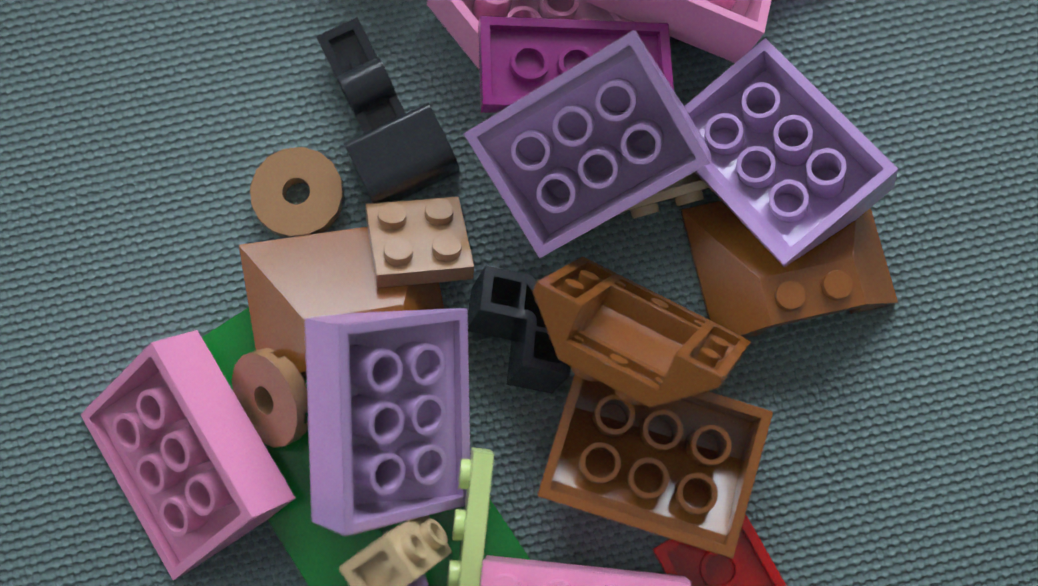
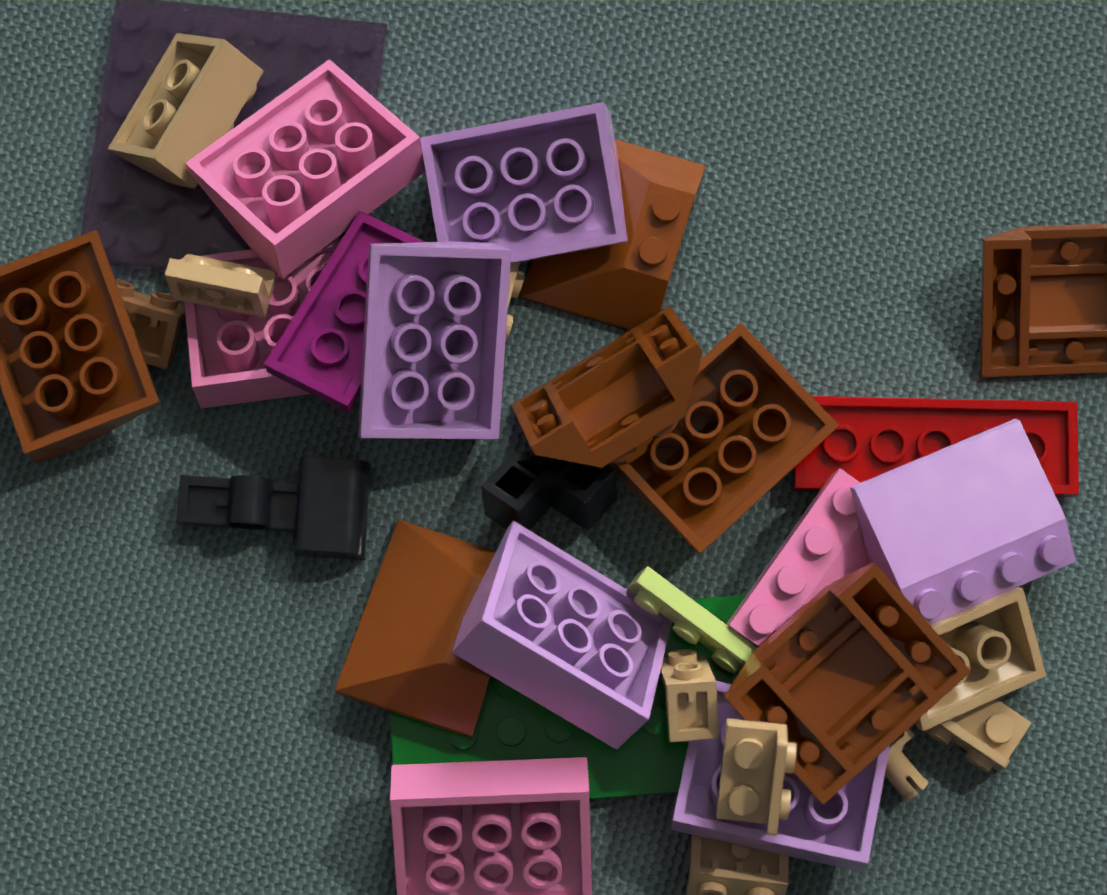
camera: 60 degrees left, 0 degrees up
(263, 376) = (489, 709): medium nougat tile -> none
(292, 167) = (292, 596): medium nougat tile -> none
(418, 242) = (421, 534): medium nougat plate -> none

